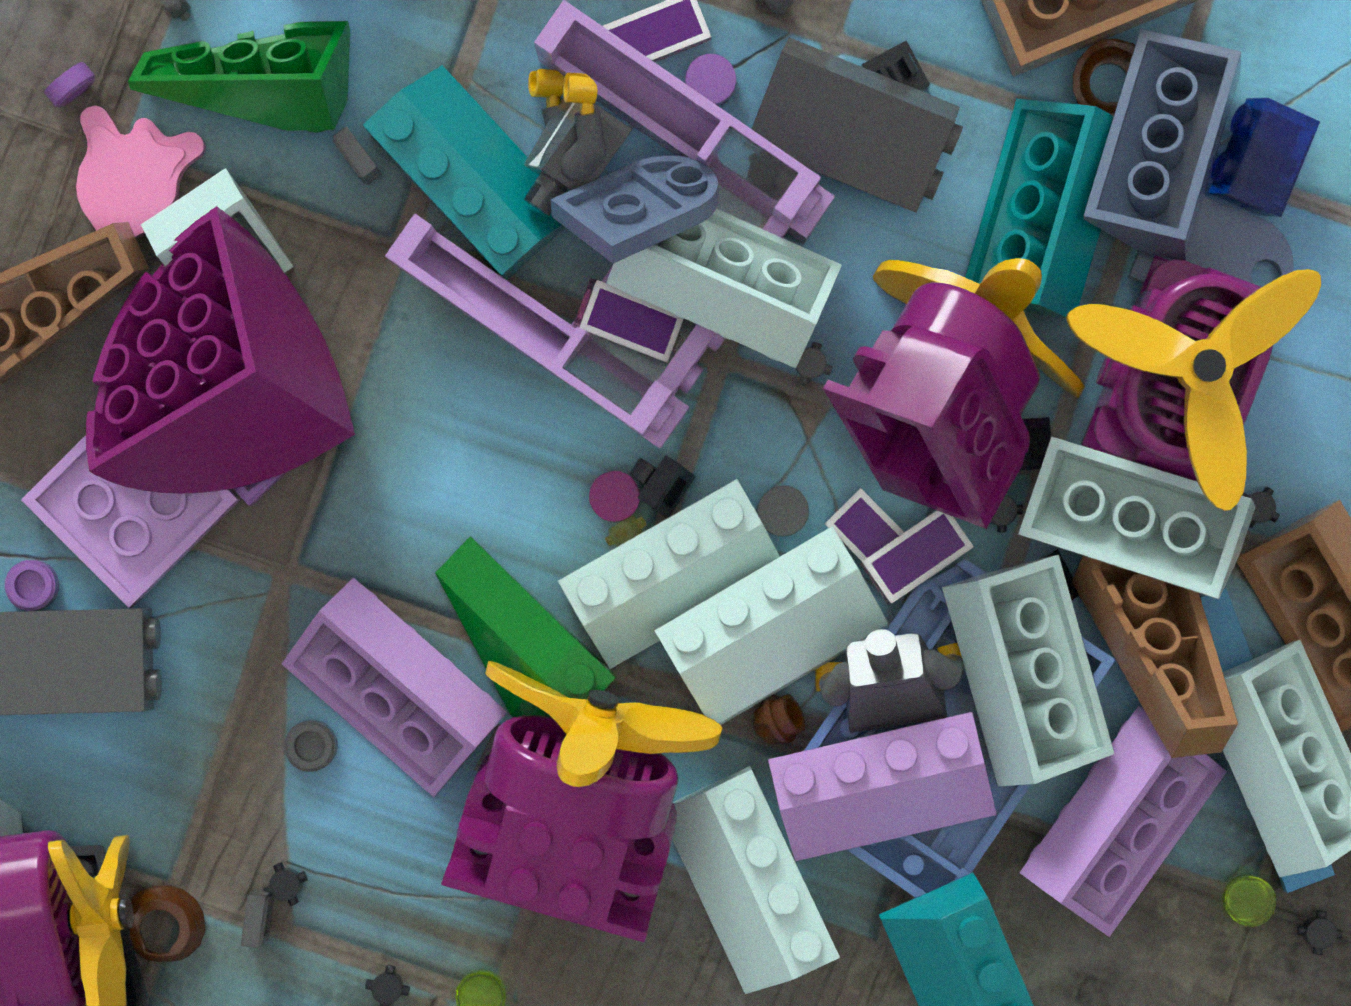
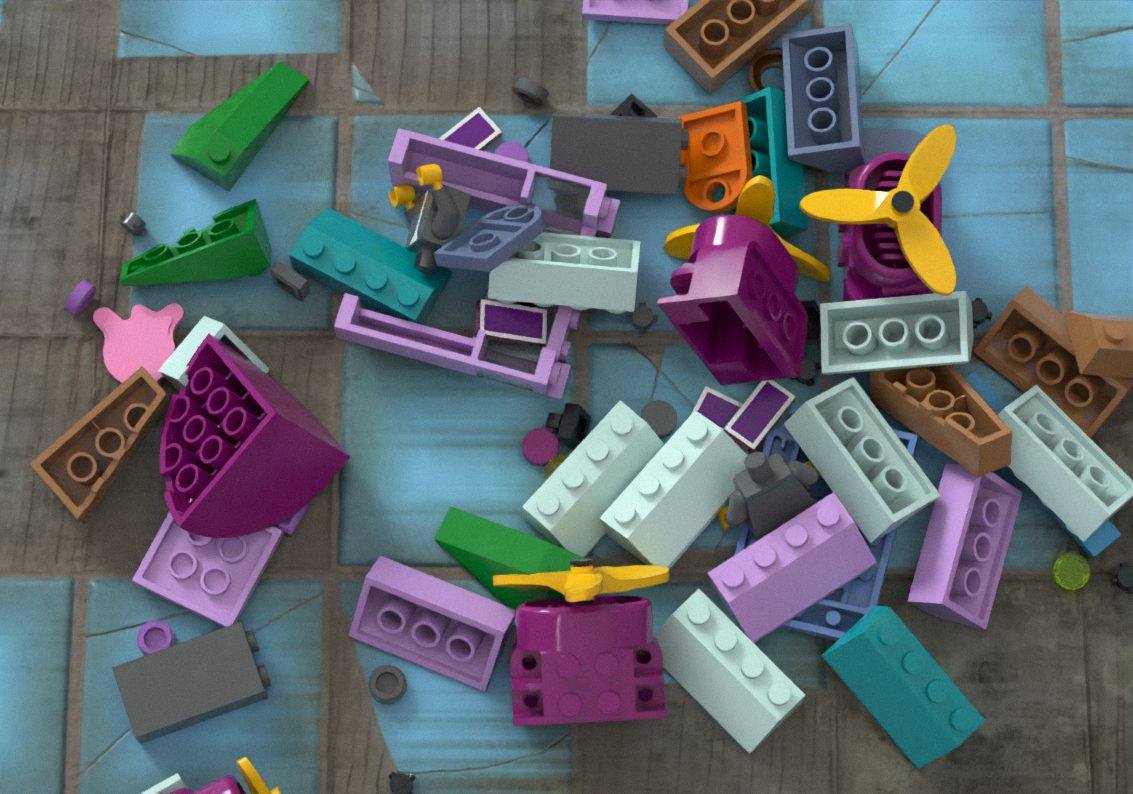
camera: 20 degrees left, 15 degrees down
(779, 719) = (704, 556): reddish brown plate -> none
(990, 173) = (717, 156): none -> orange tile
(1263, 156) = (891, 88): clear blue brick -> none

